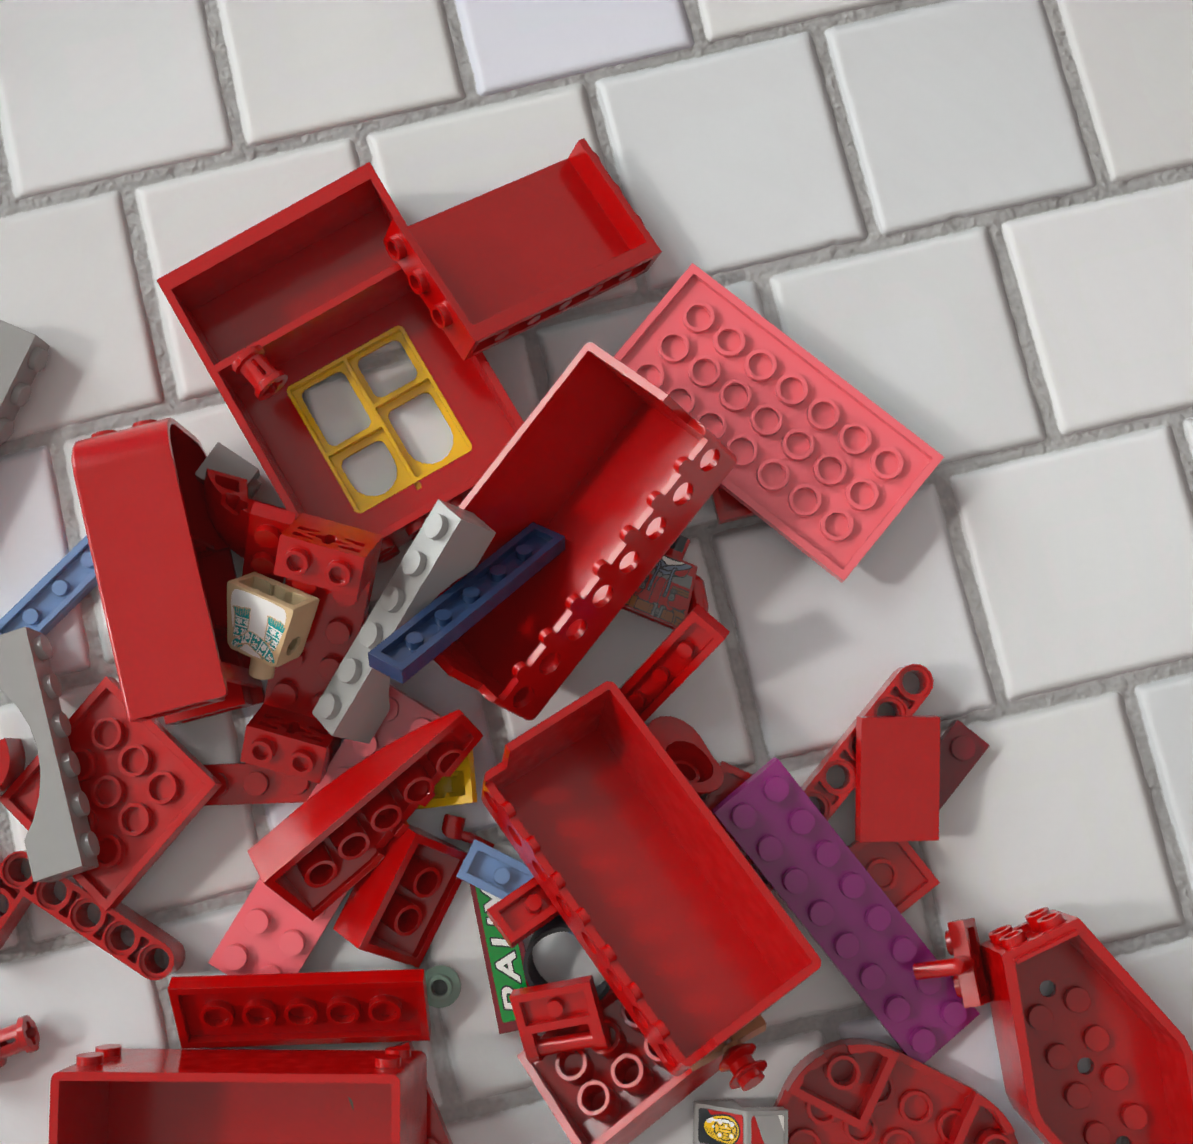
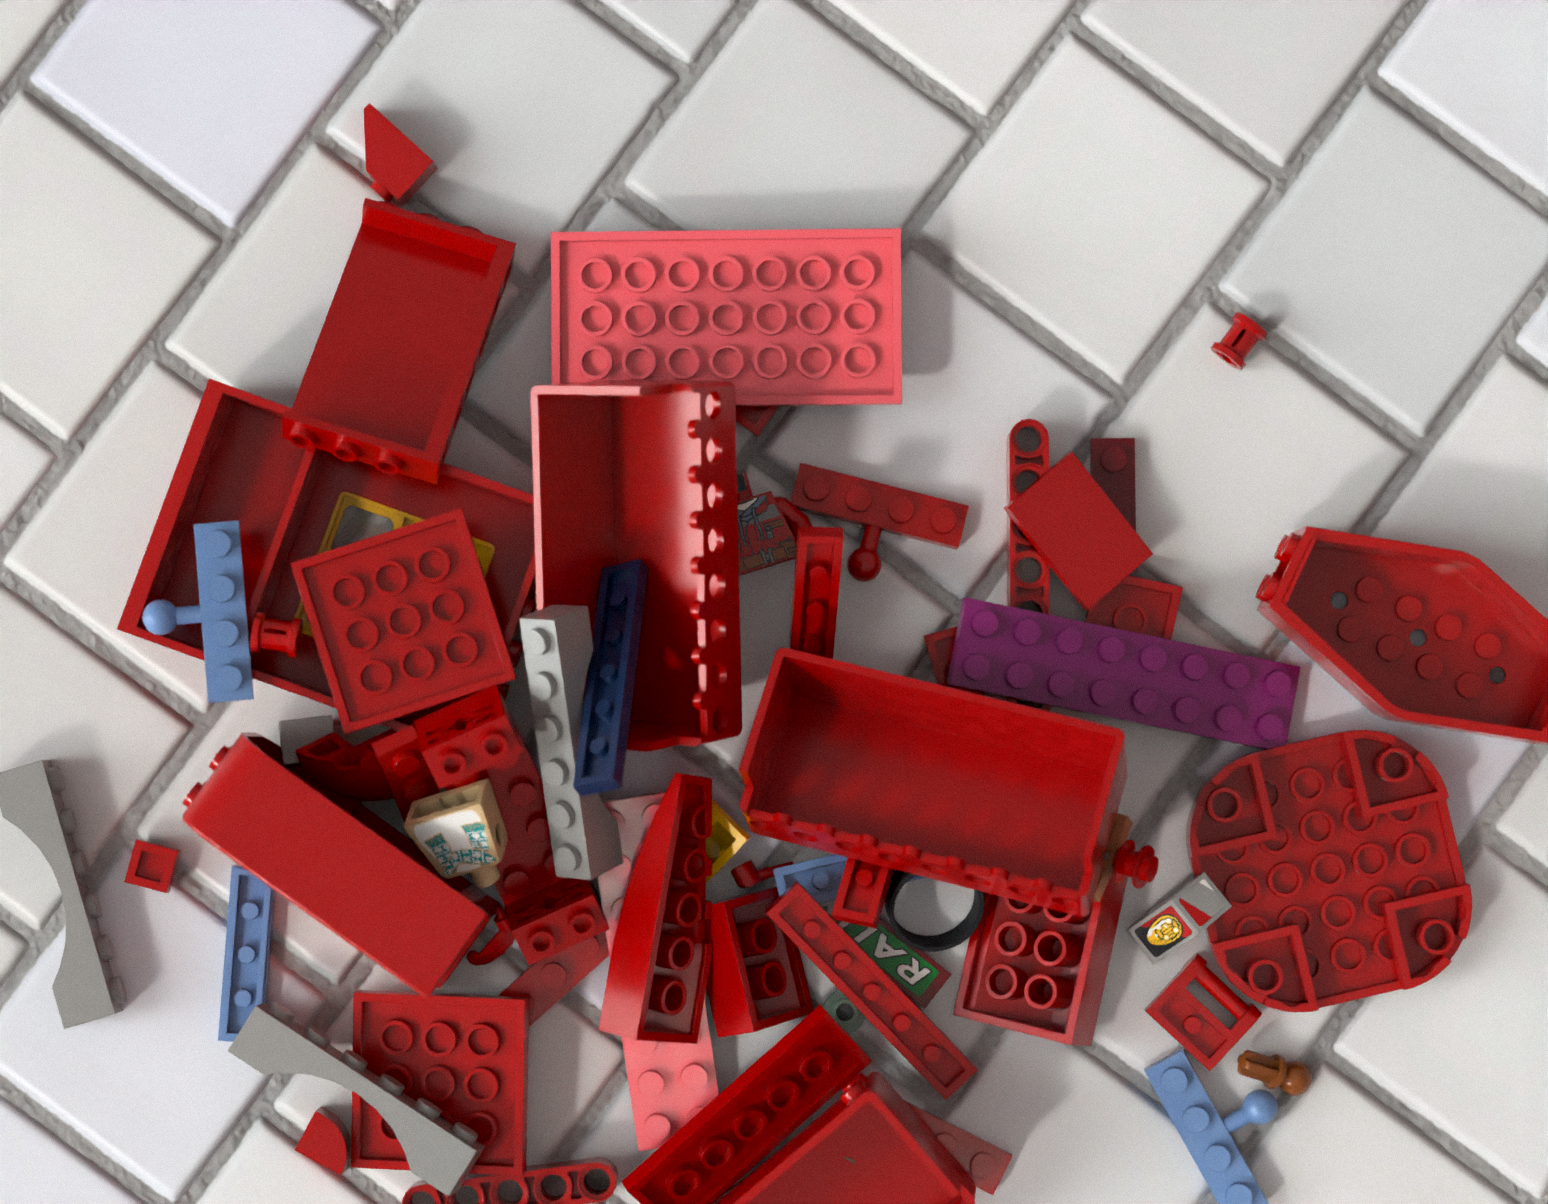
camera: 40 degrees left, 5 degrees up
(49, 472) = (152, 866): none -> red plate
(235, 325) = (220, 612): none -> medium blue plate
(235, 728) = (499, 942): none -> red piece
(357, 437) = (403, 621): none -> red plate
(471, 989) = (871, 990): none -> red plate
(558, 1007) = (952, 946): red plate -> none
(625, 132) = (393, 159): none -> red slope
(688, 753) = (890, 653): red piece -> none
(762, 644) = (878, 509): none -> red plate
(966, 966) = (1253, 633): red plate -> none
(1110, 740) = (1239, 341): none -> red bush

